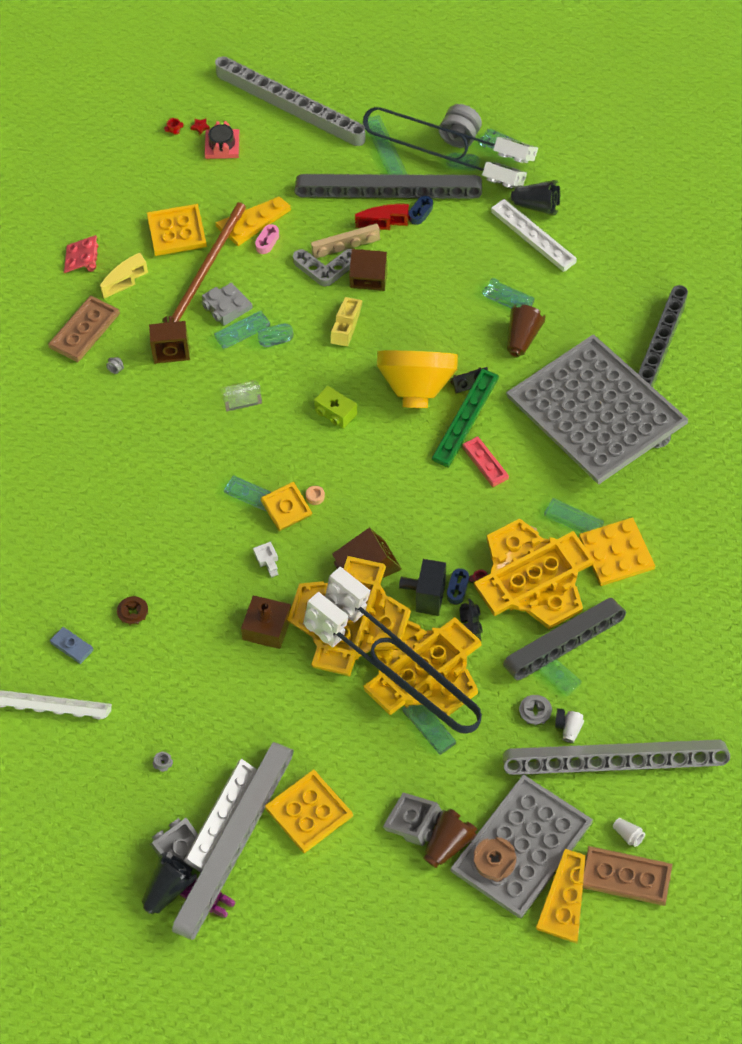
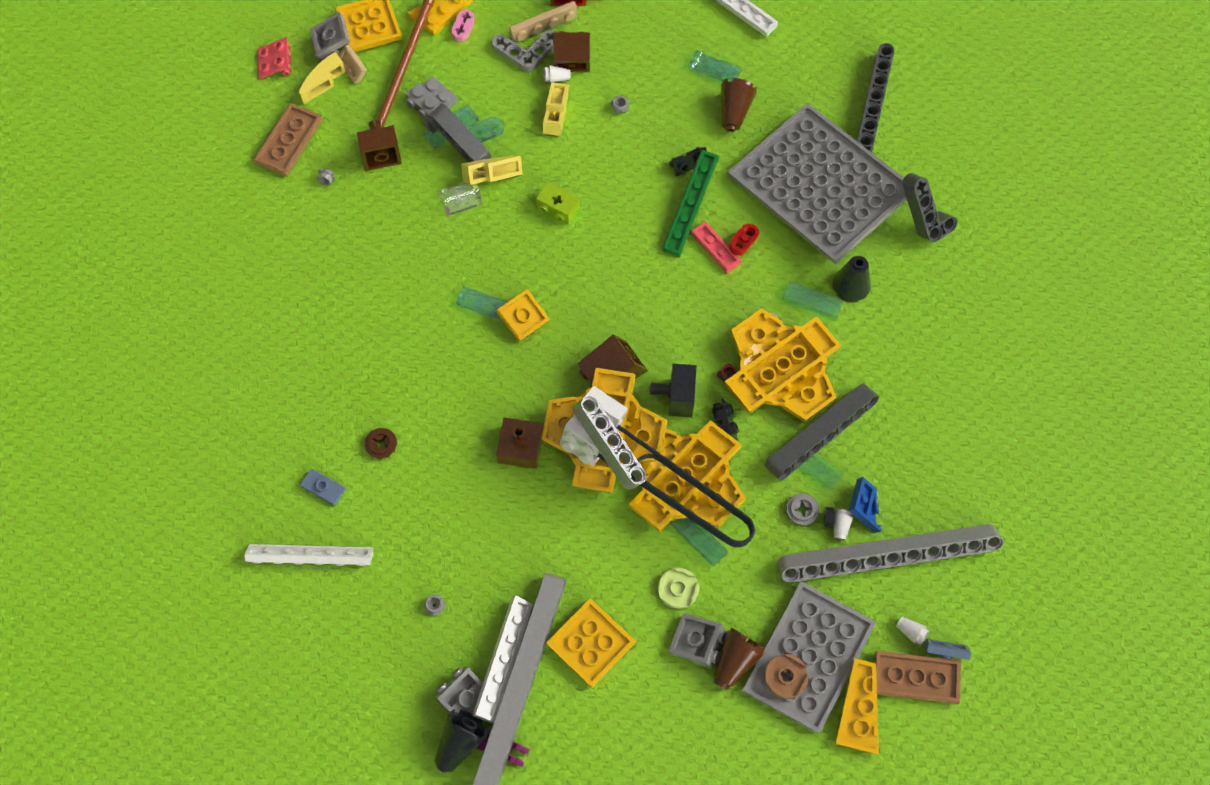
camera: 10 degrees left, 10 degrees up
(137, 237) = (329, 36): none -> light grey plate
(155, 265) = (352, 64): none -> tan plate
(247, 337) = (456, 133): none -> dark grey beam
(267, 556) = (509, 371): white plate -> none
(275, 370) = (491, 169): none -> light yellow slope
(315, 495) = (549, 299): light nougat tile -> none
(348, 609) = (610, 453): none -> light grey beam
(350, 289) = (555, 74): none -> white cone
(402, 771) = (678, 588): none -> yellowish green tile
(409, 318) = (620, 100): none -> light grey plate
(416, 374) = (637, 162): yellow cone -> none
(462, 586) = (711, 384): dark blue beam -> none
(512, 457) = (742, 240): none -> red plate
(597, 710) = (865, 505): none -> blue wing
(616, 501) = (853, 280): none -> black cone
(617, 551) = (860, 331): yellow plate -> none
(660, 853) = (947, 650): none -> sand blue plate
(687, 417) = (928, 222): none -> dark grey beam

